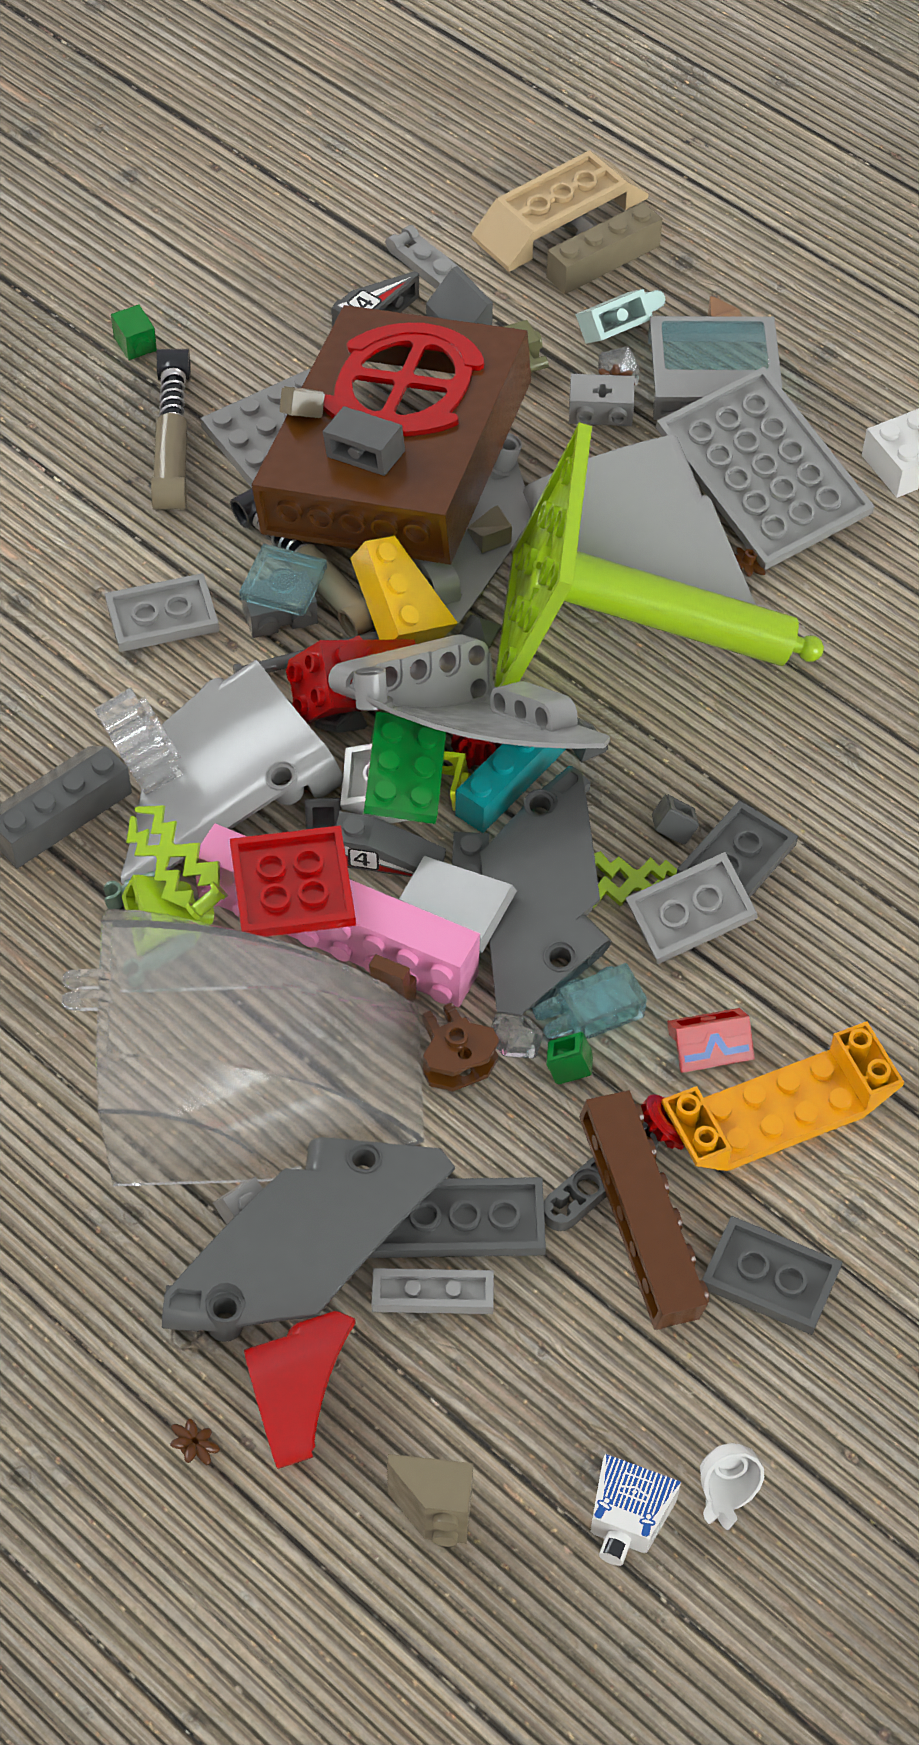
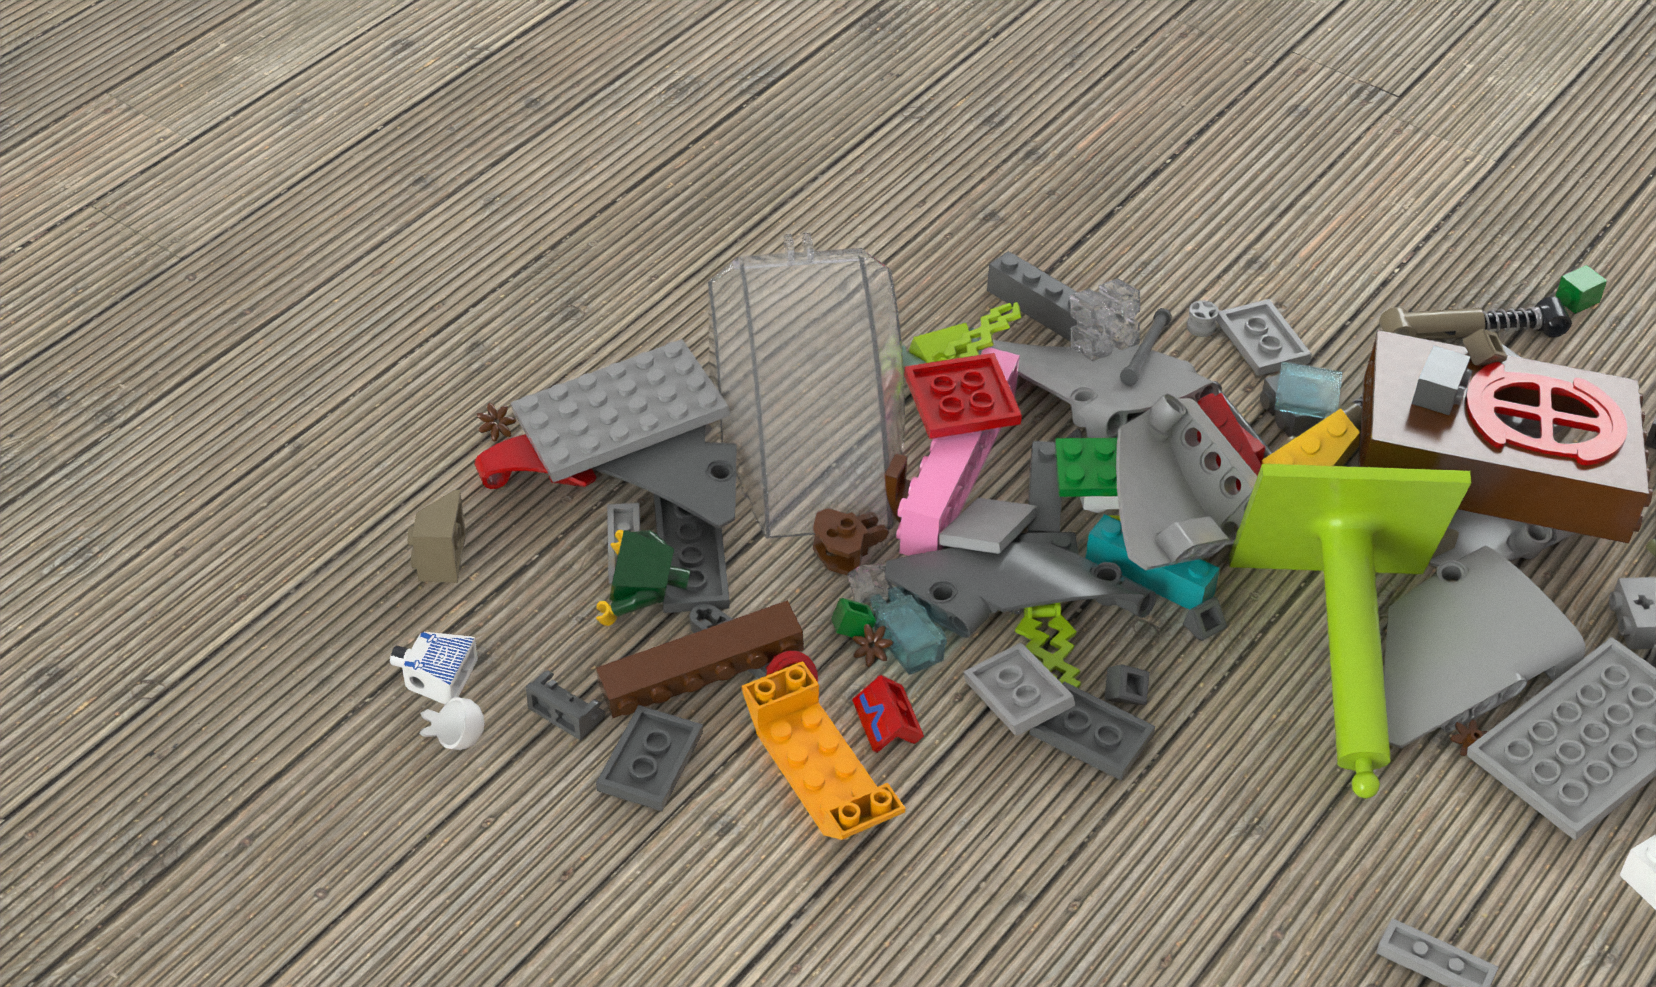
camera: 85 degrees right, 10 degrees down
(114, 655) = (1202, 318): none -> light grey wheel
(240, 731) = (1130, 374): none -> dark grey bar
(244, 1268) = (619, 409): none -> light grey plate
(517, 1258) = (640, 574): none -> dark green torso
(611, 1042) = (869, 641): none -> reddish brown plant
(692, 1363) = (563, 707): none -> dark grey hinge

